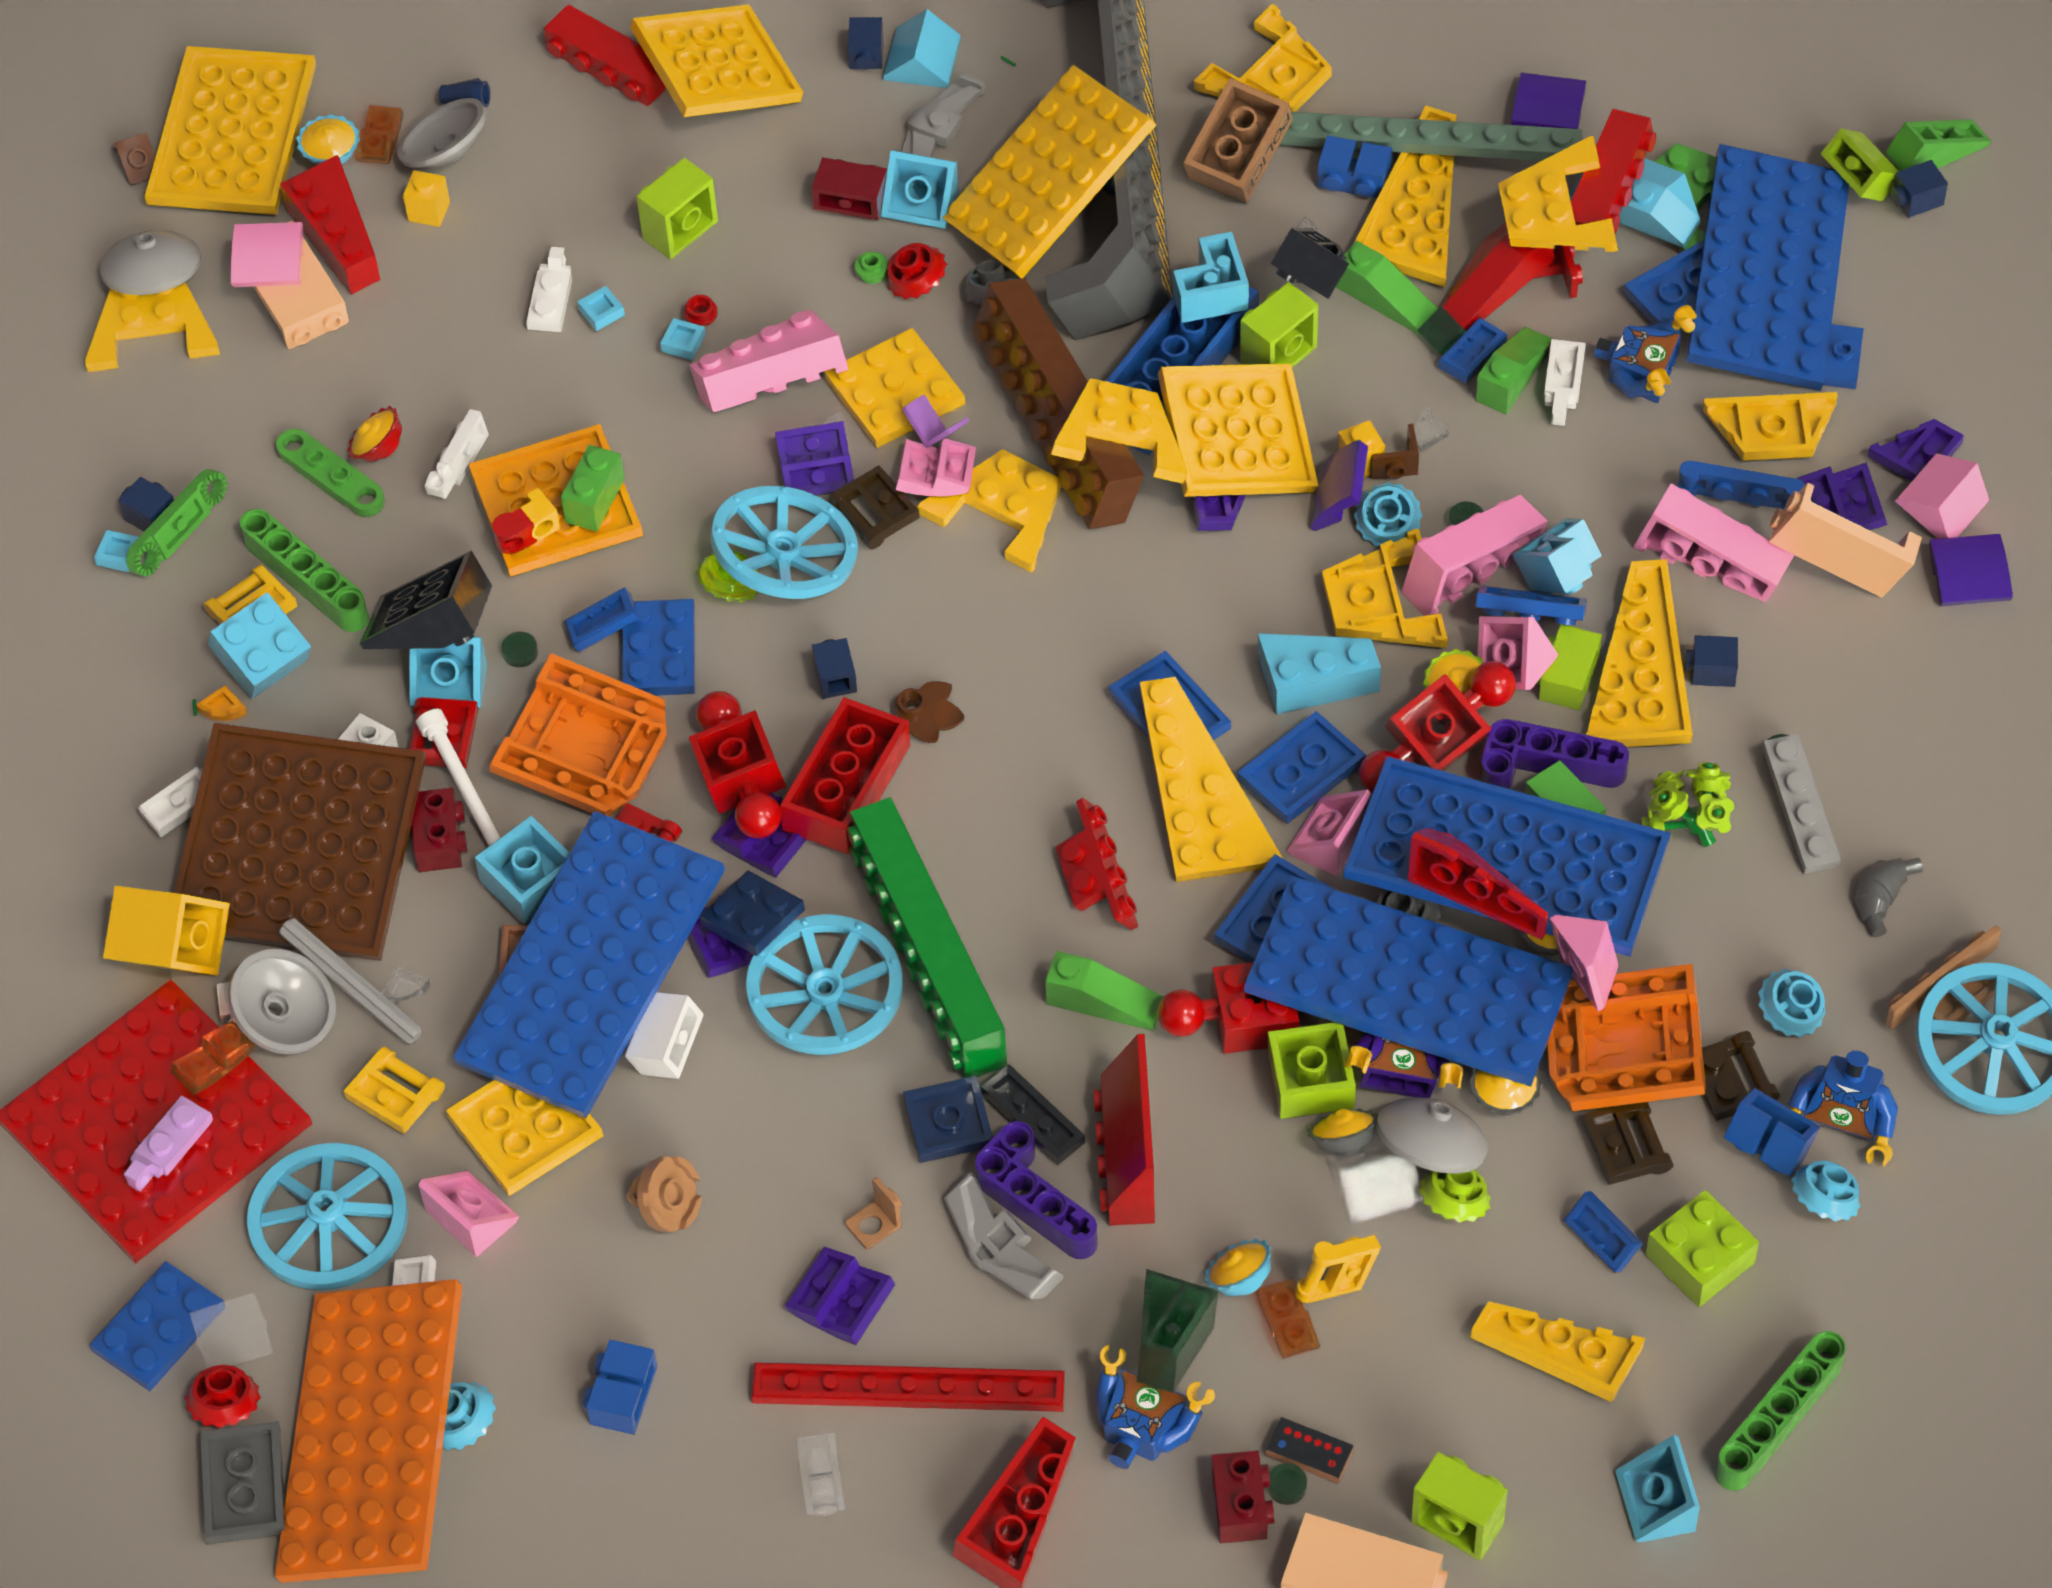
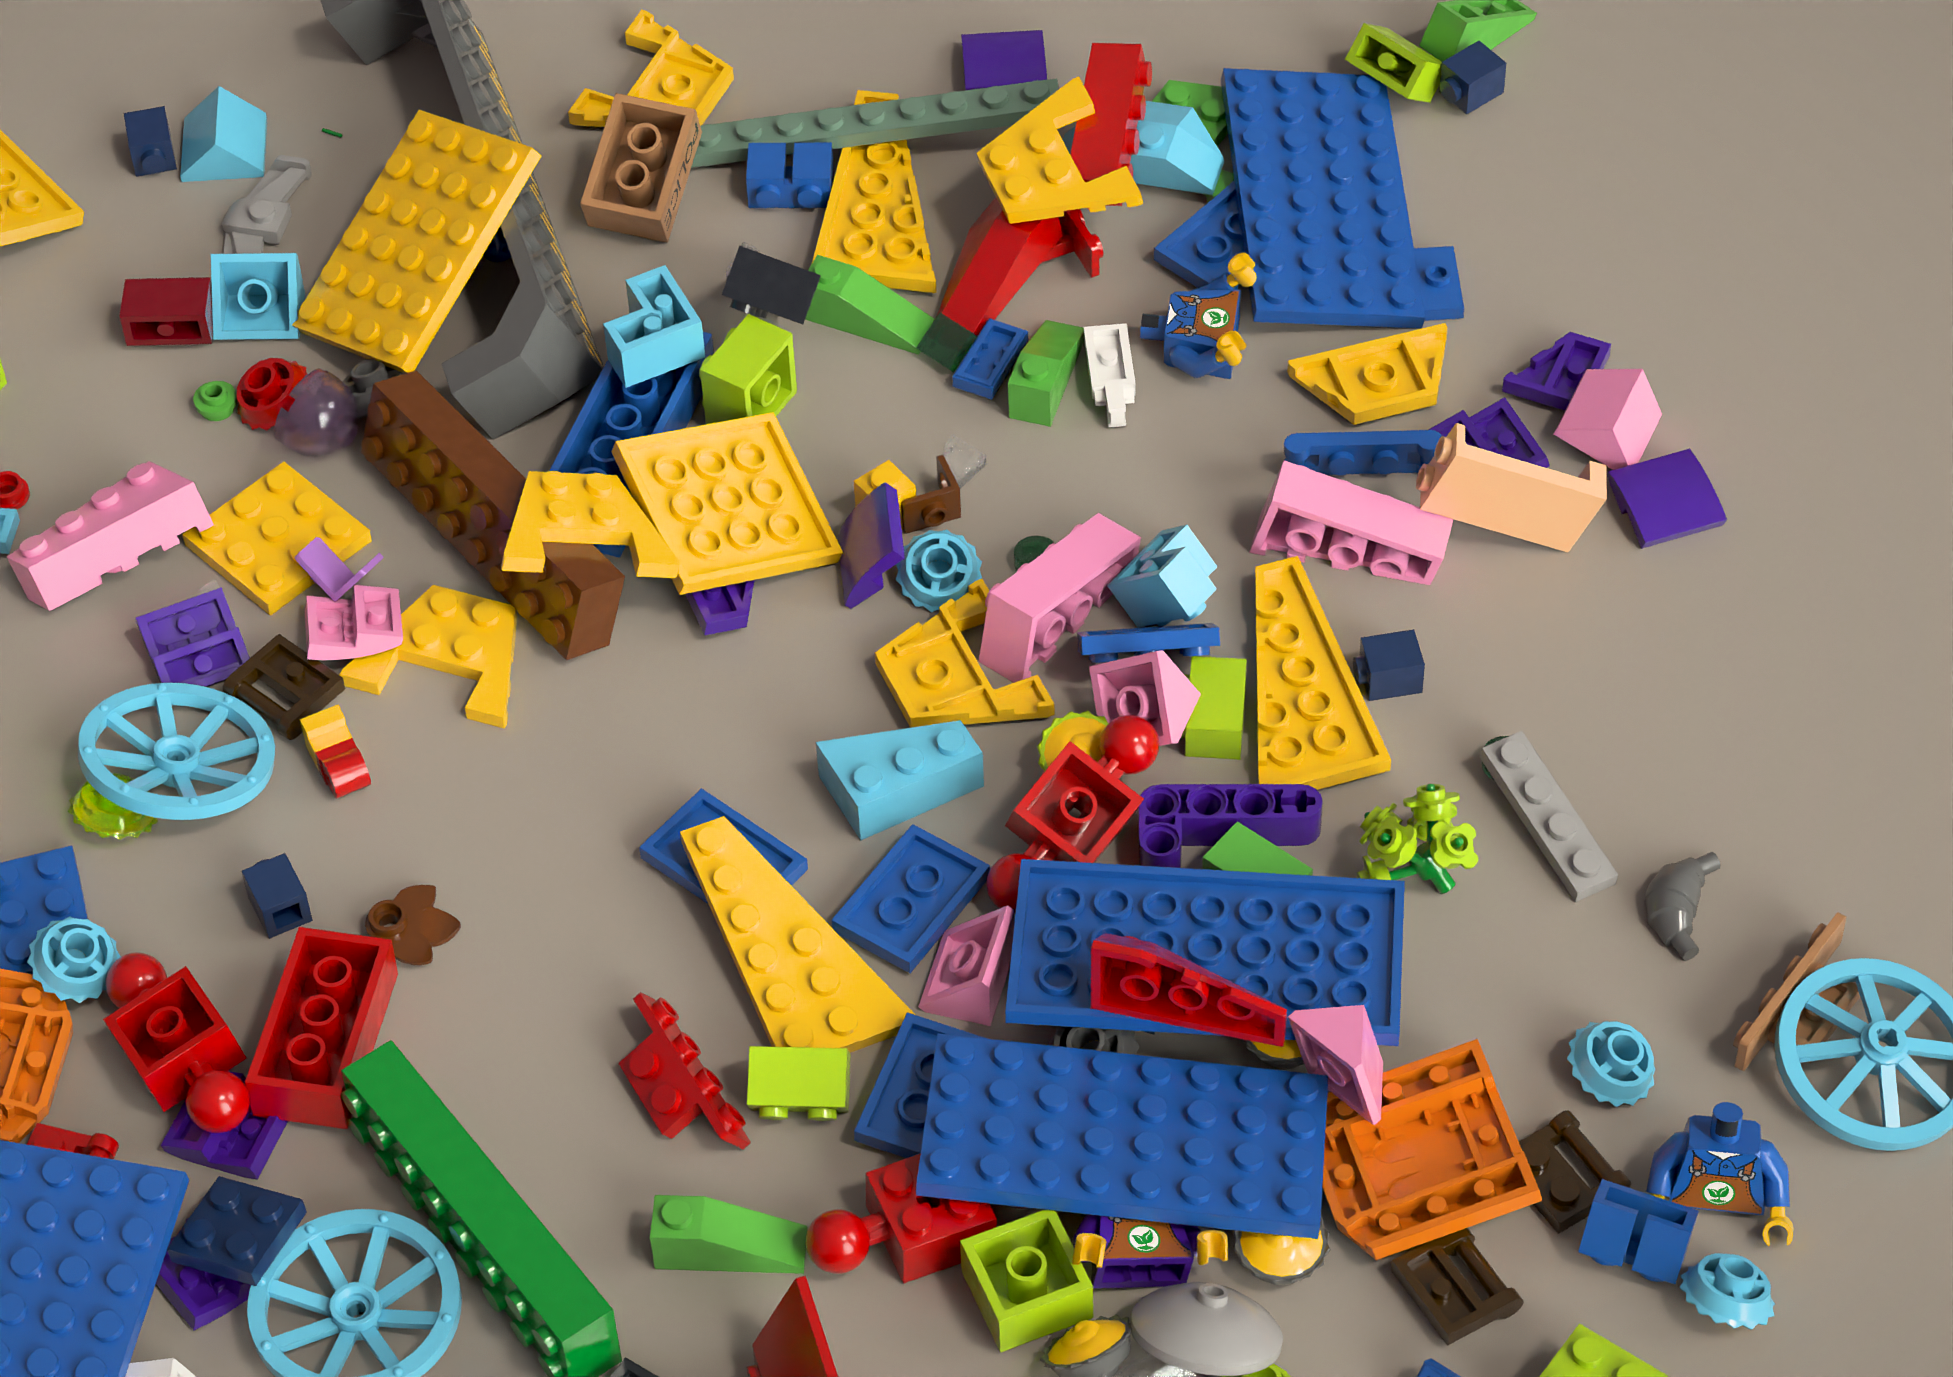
camera: 15 degrees left, 5 degrees down
(676, 685) = (72, 958): none -> medium azure piece
(900, 566) = (335, 751): none -> leg
(946, 298) = (319, 417): none -> clear purple cylinder
(1182, 888) = (798, 1082): none -> lime brick

